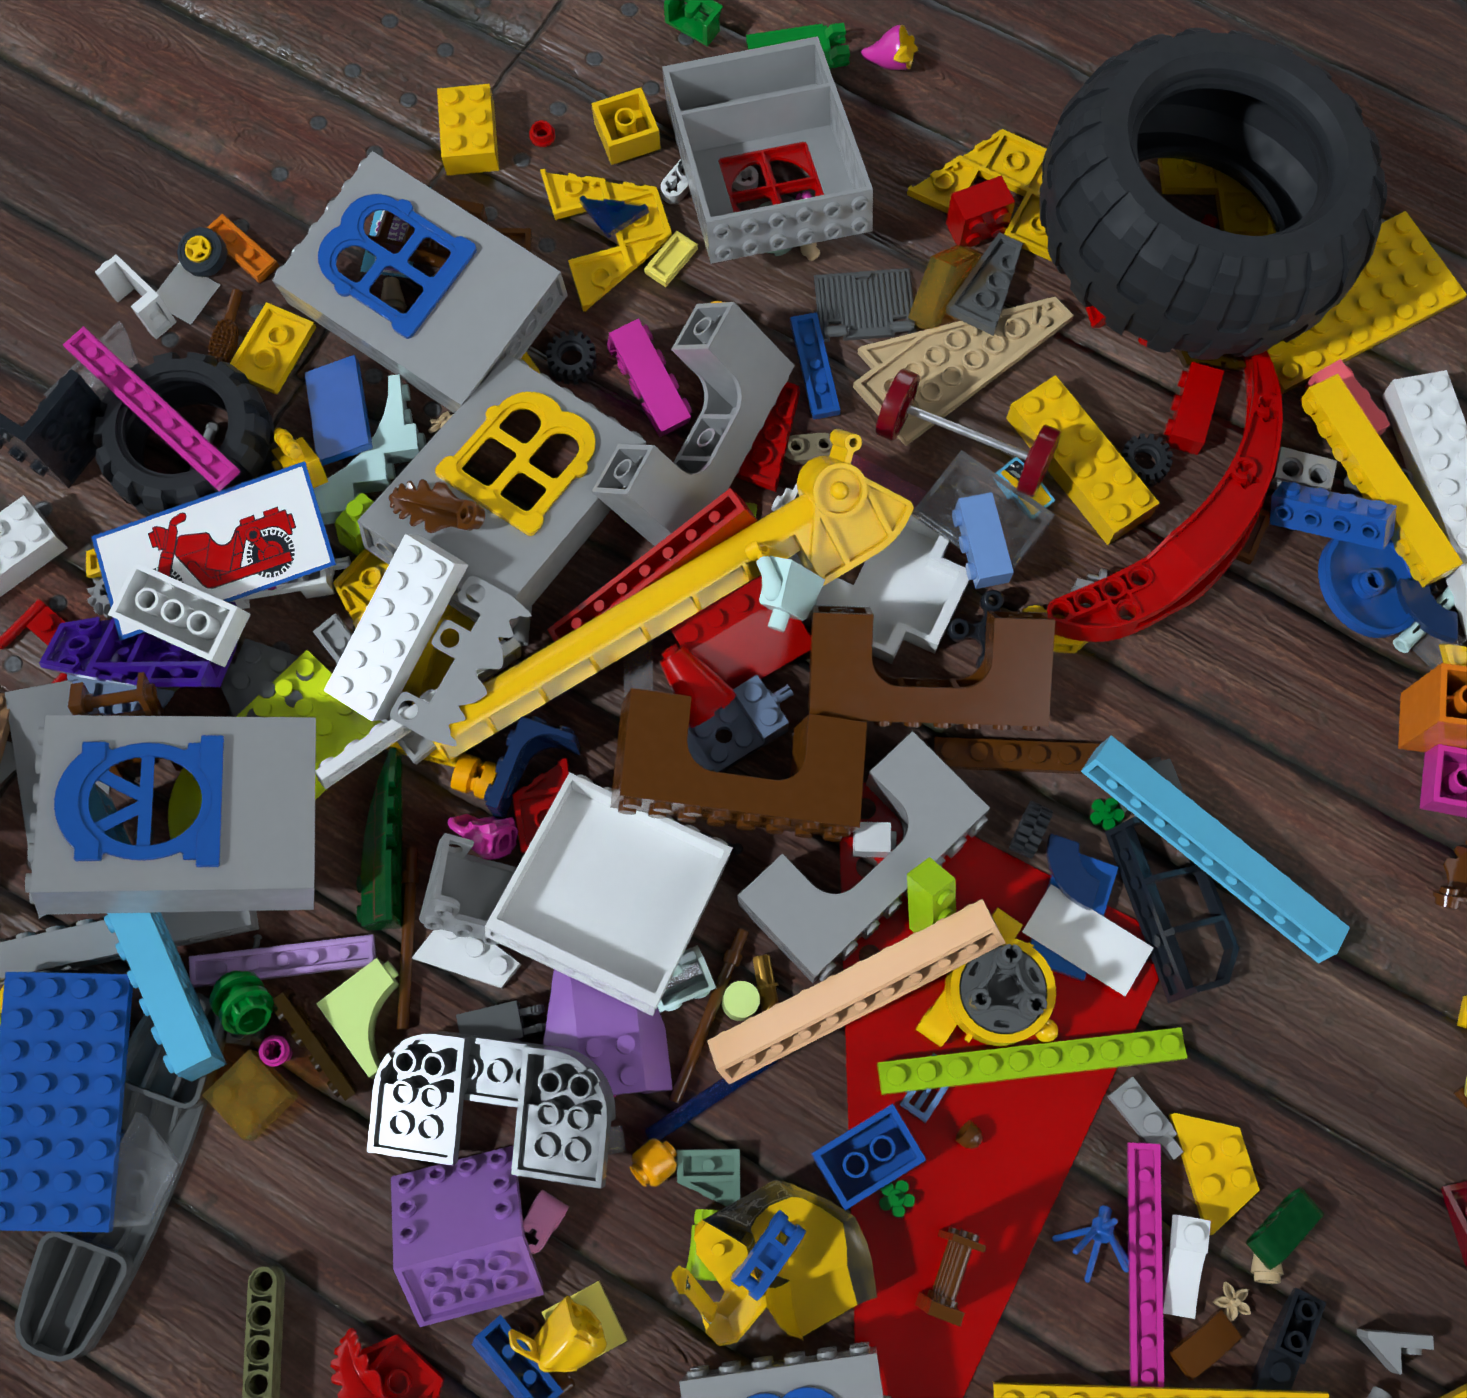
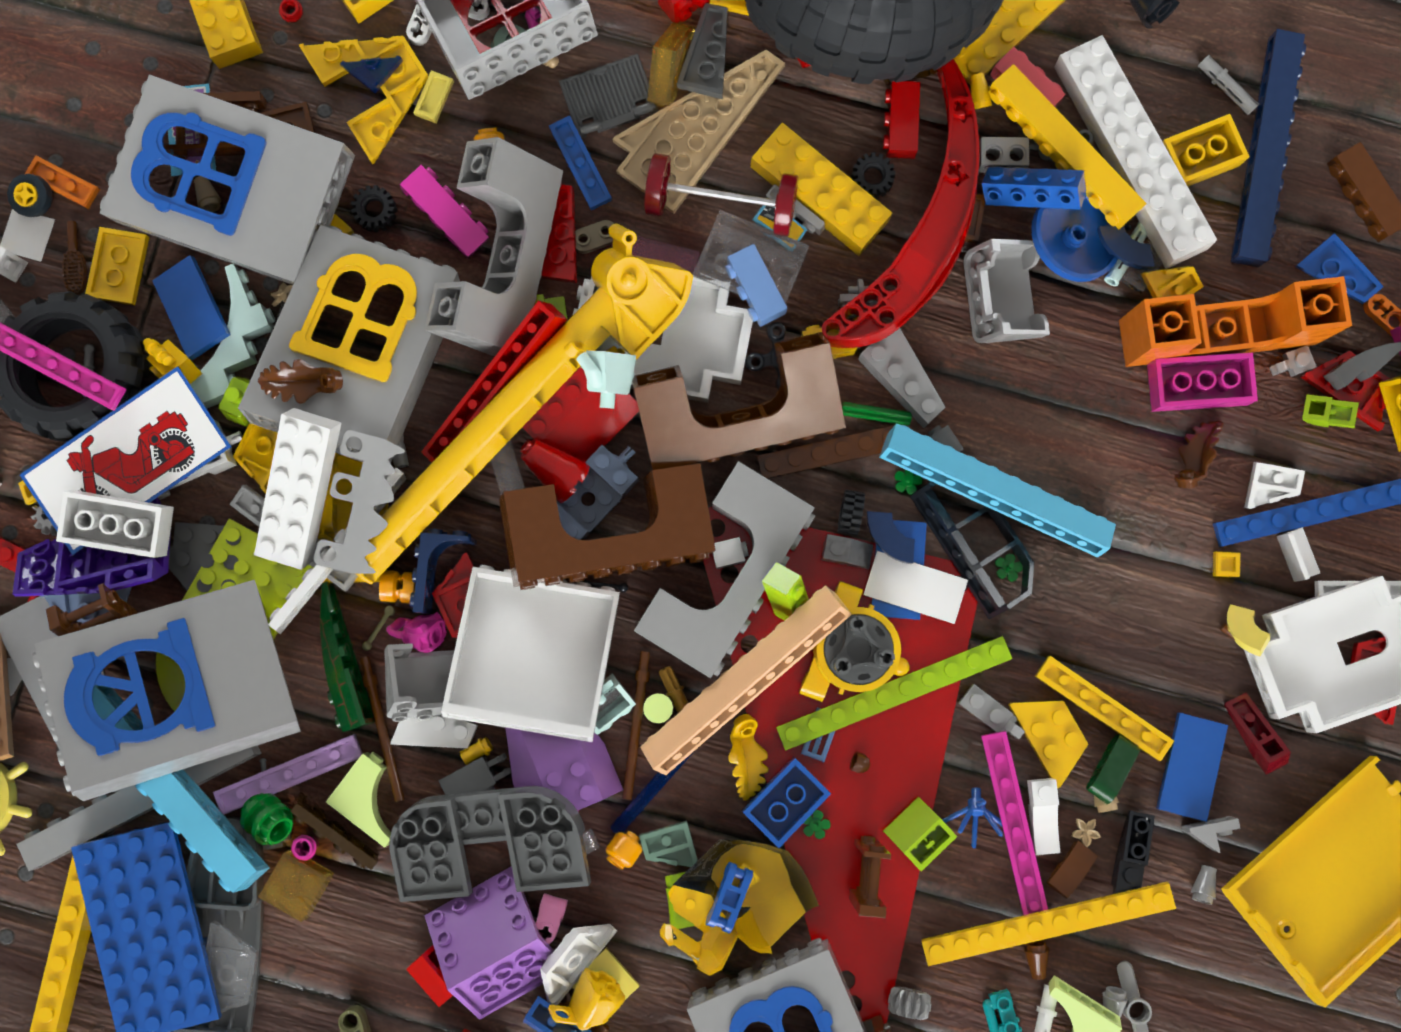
camera: 15 degrees left, 10 degrees up
(375, 1252) = (429, 976): none -> red brick
(456, 803) = (389, 611): none -> olive hinge
(514, 992) = (476, 750): none -> yellow pin
(552, 1278) = (572, 957): none -> white wing
(833, 1089) = (747, 756): none -> yellow plant
(1014, 875) = (847, 551): none -> flat silver slope
(1023, 1243) = (920, 833): none -> lime slope
(1058, 485) = (809, 219): none -> light grey hinge
(1085, 724) = (876, 413): none -> green axle
(1129, 690) = (903, 376): none -> light grey wedge
(1204, 947) = (1008, 567): none -> green plant
(1267, 623) = (1002, 291): none -> light grey windscreen
(1289, 1151) = (1104, 708): none -> yellow plate
(1291, 397) = (979, 91): none -> yellow cone
(1385, 1256) = (1192, 767): none -> blue tile

